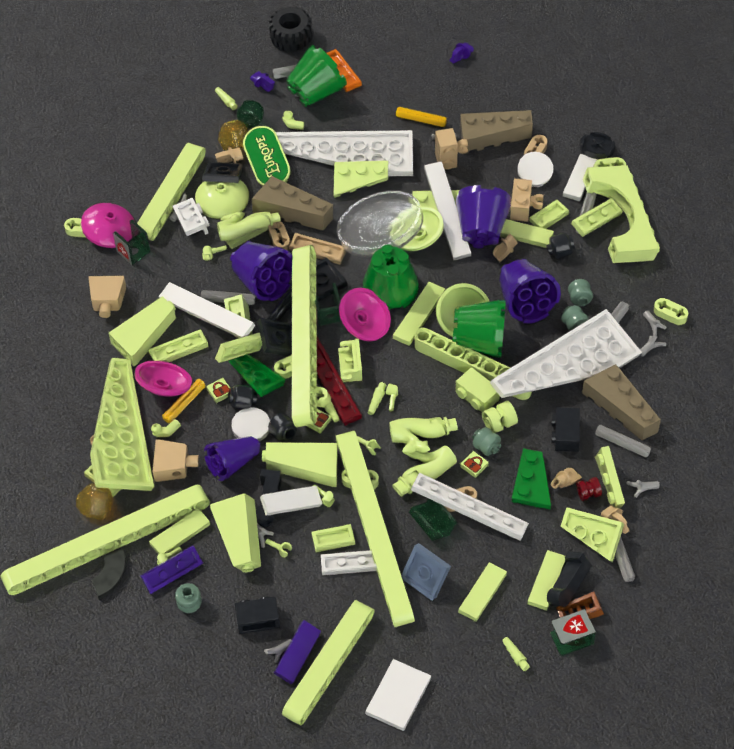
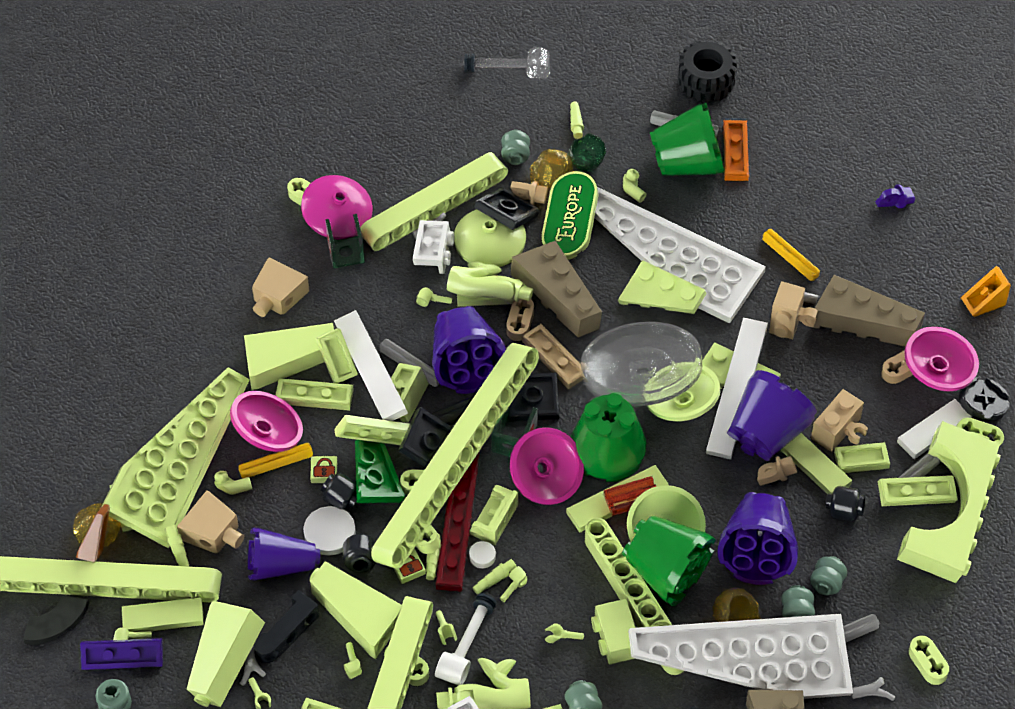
camera: 30 degrees right, 0 degrees up
(103, 506) = (94, 540): none -> slope
(159, 484) = (177, 545): none -> yellowish green animal
(175, 74) = (536, 63): none -> clear piece
(179, 315) = (336, 356): none -> yellowish green tile
(200, 132) = (515, 147): none -> sand green piece
(262, 80) = (631, 116): dark purple piece -> none
(291, 500) = (306, 646): white tile -> none
(359, 389) = (482, 554): none -> white tile
(392, 463) = (454, 666): none -> white piece
(404, 429) = (523, 644): yellowish green piece -> none
(433, 293) = (626, 492): none -> clear red tile
(441, 410) = (559, 633): none -> yellowish green hand
(501, 416) = (619, 680): yellowish green wheel -> none
(535, 167) = (883, 390): white tile -> none
(538, 338) = (735, 605): none -> clear yellow hair
(557, 82) = (988, 293): none -> light orange slope
(559, 132) = (941, 358): none -> dark pink dish
(653, 322) = (896, 663): light grey bar -> none

